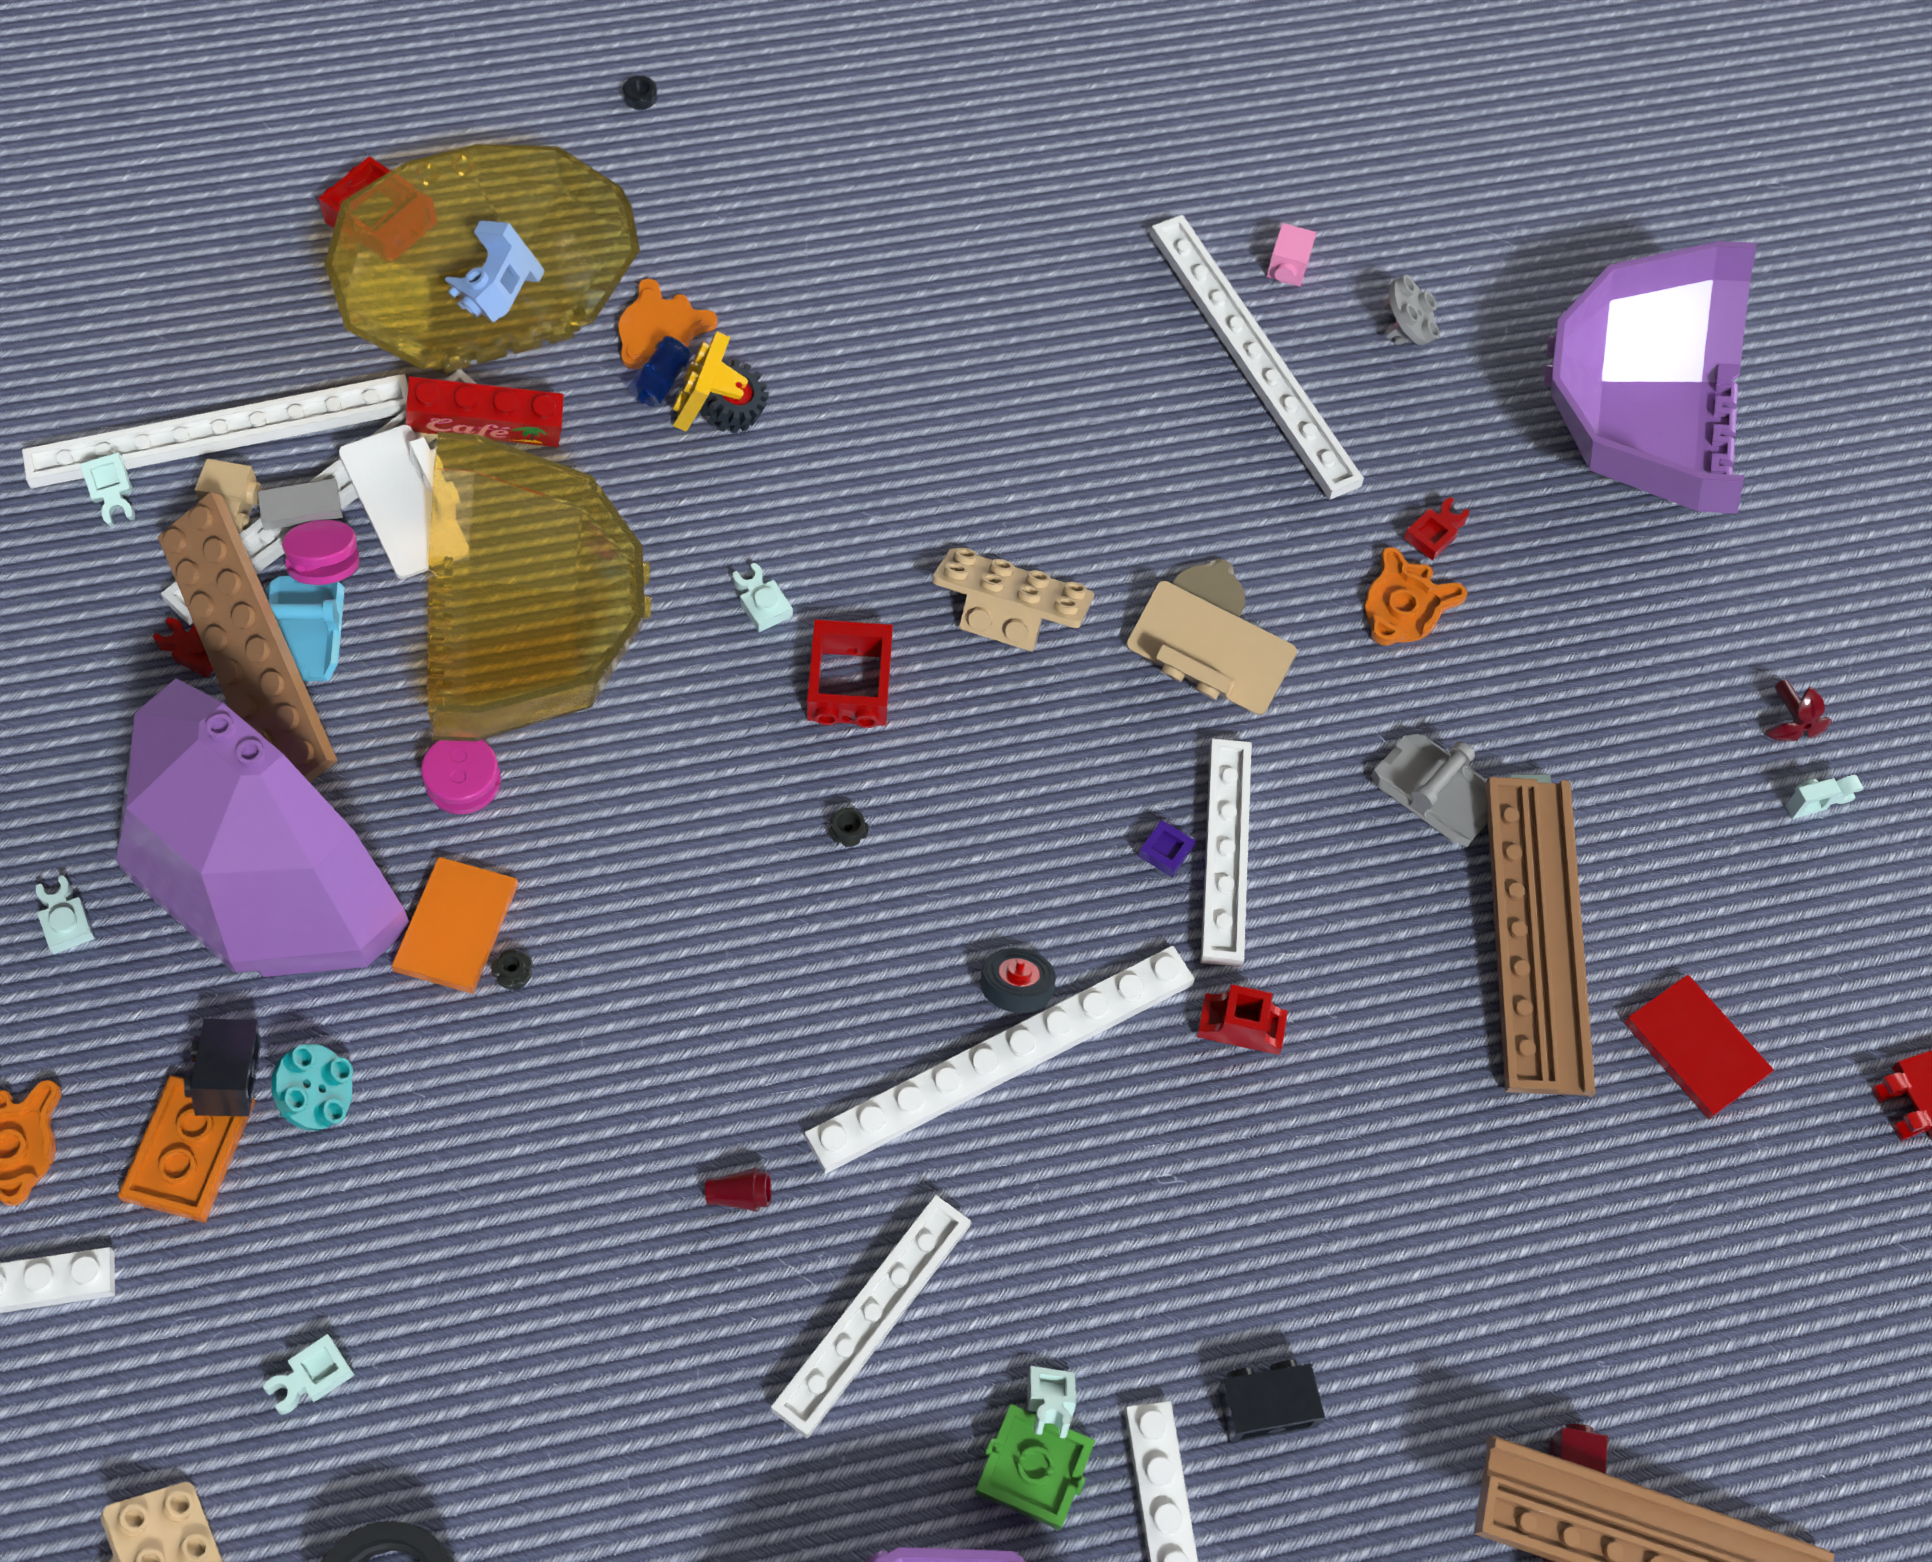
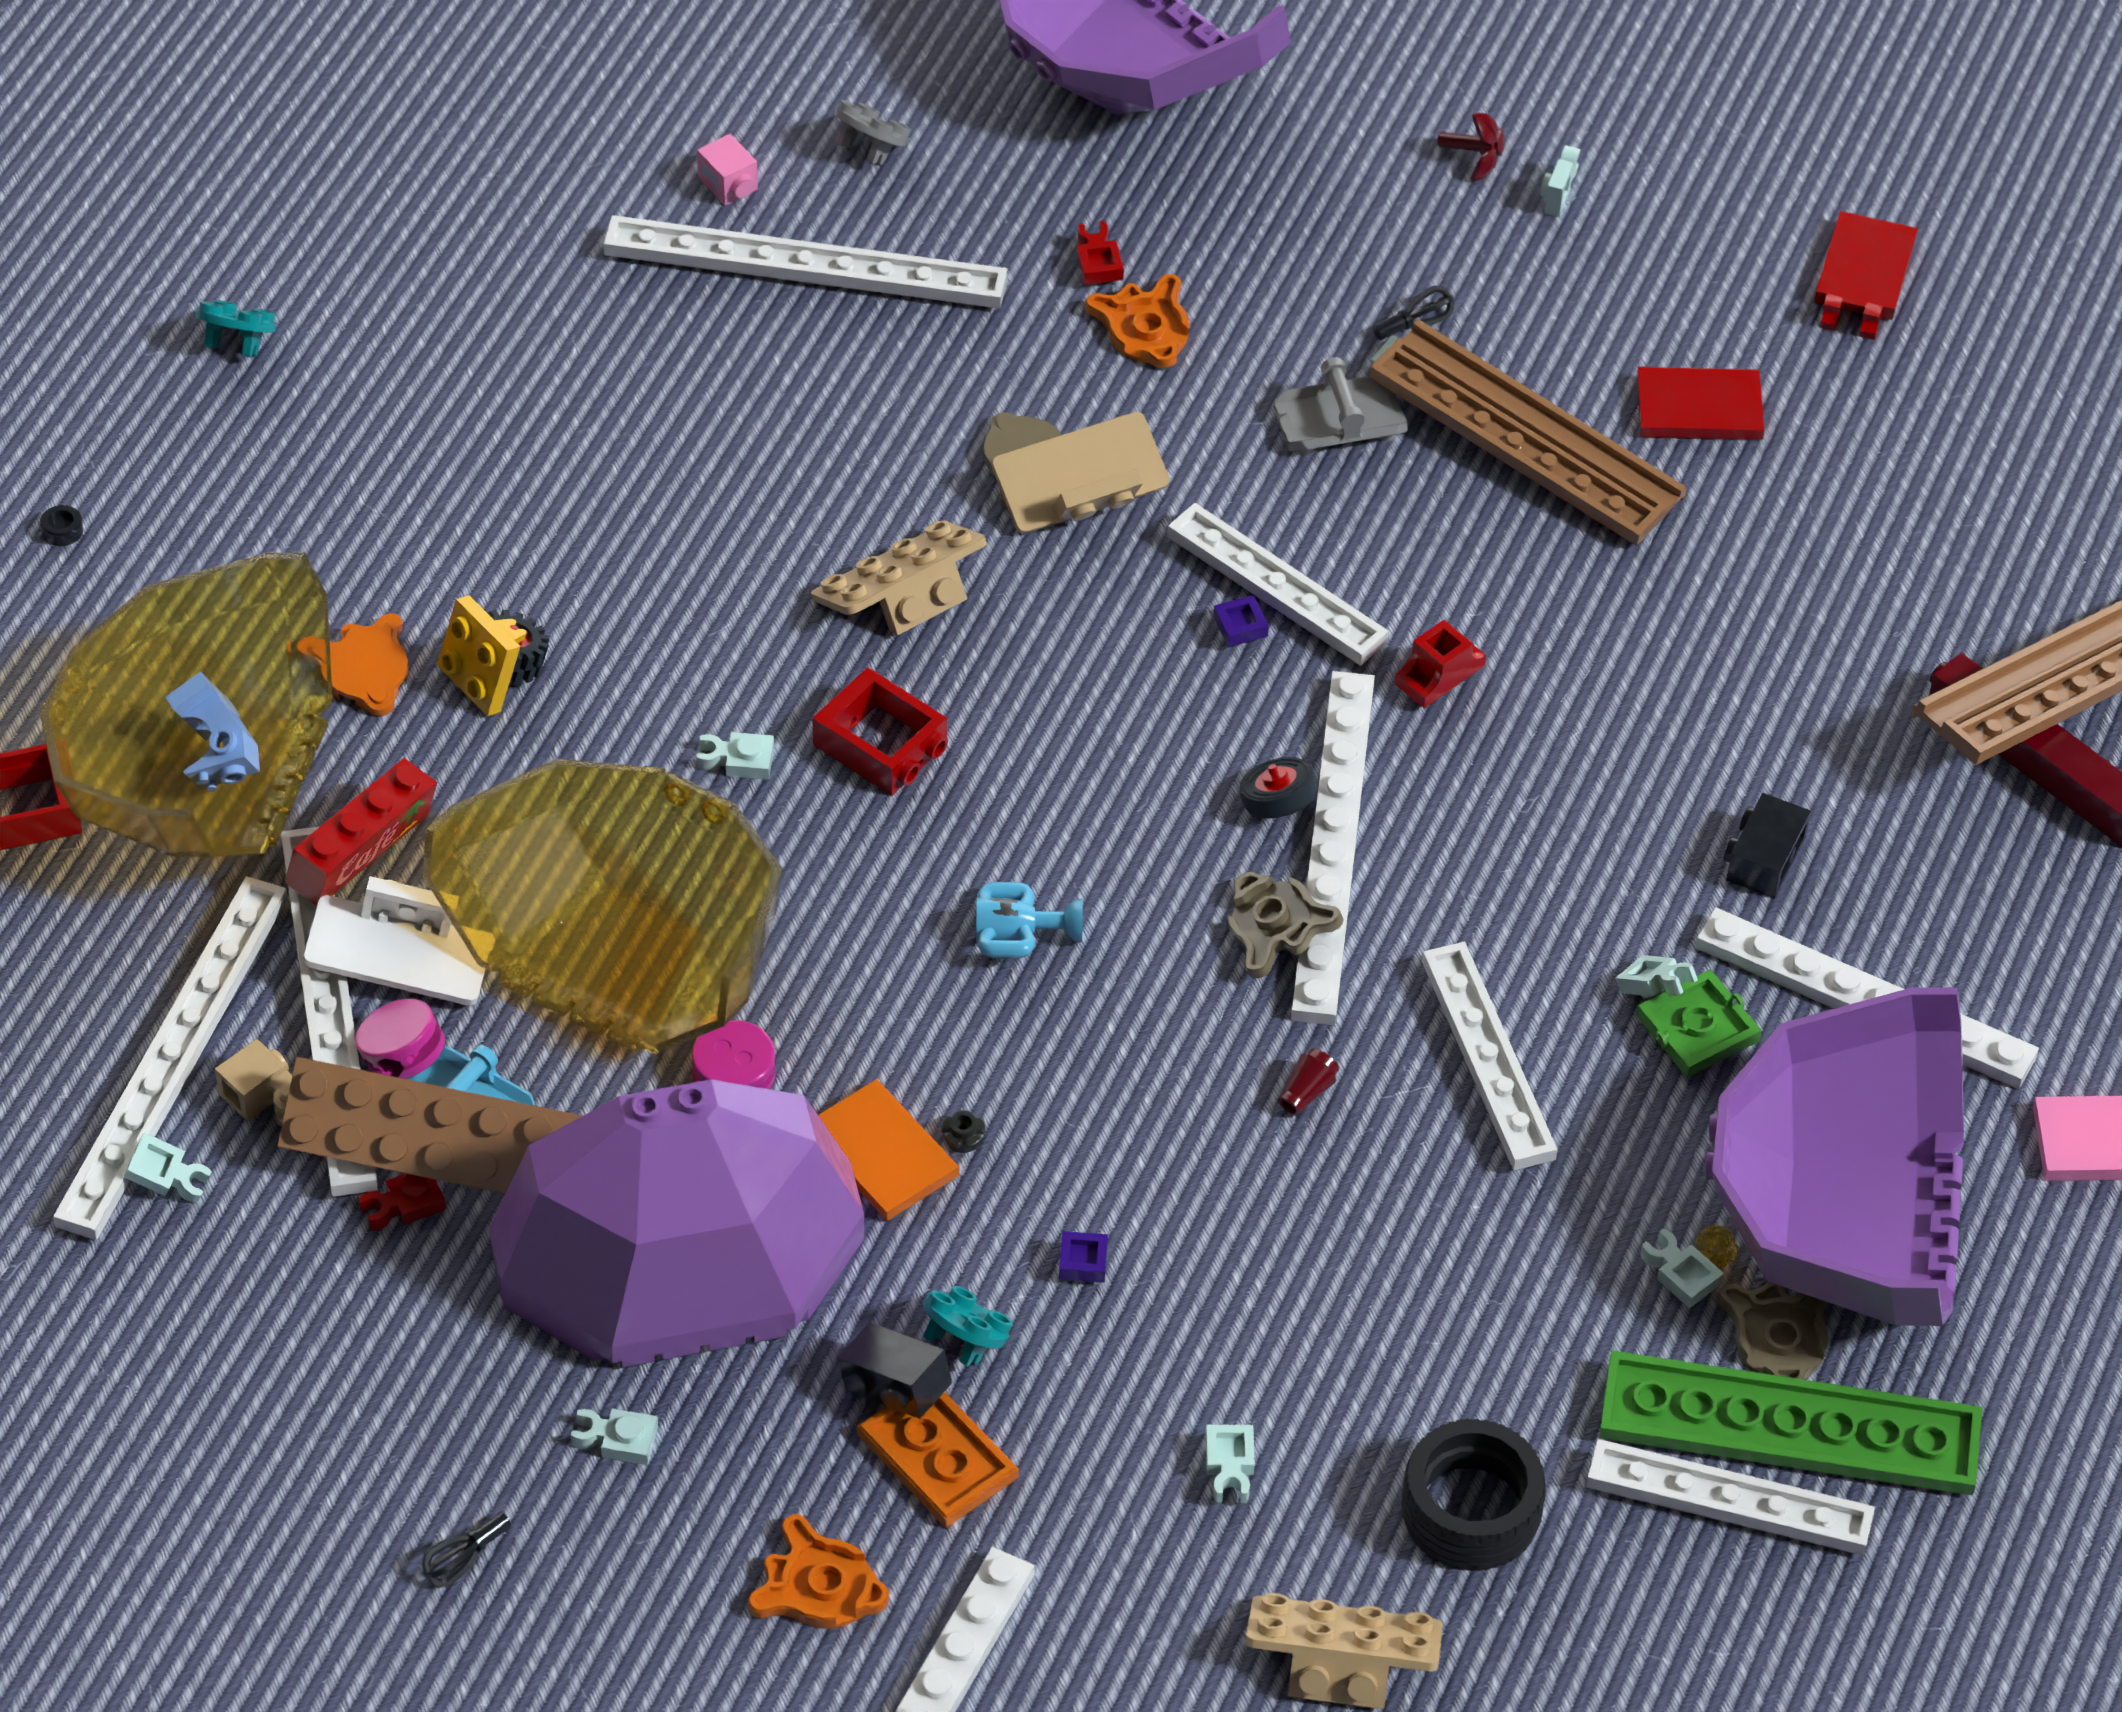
camera: 50 degrees left, 10 degrees down
(299, 504) = (333, 1024): light grey tile -> none
(444, 1133) = (1083, 1256): none -> dark purple plate
(658, 374) = (428, 685): clear blue piece -> none
(739, 875) = (1005, 919): none -> medium azure piece
(852, 818) = (1029, 813): pearl dark grey plate -> none
(882, 1062) = (1276, 918): none -> dark tan tile
(889, 70) = (223, 315): none -> teal plate
(1581, 776) = (1407, 317): none -> black piece

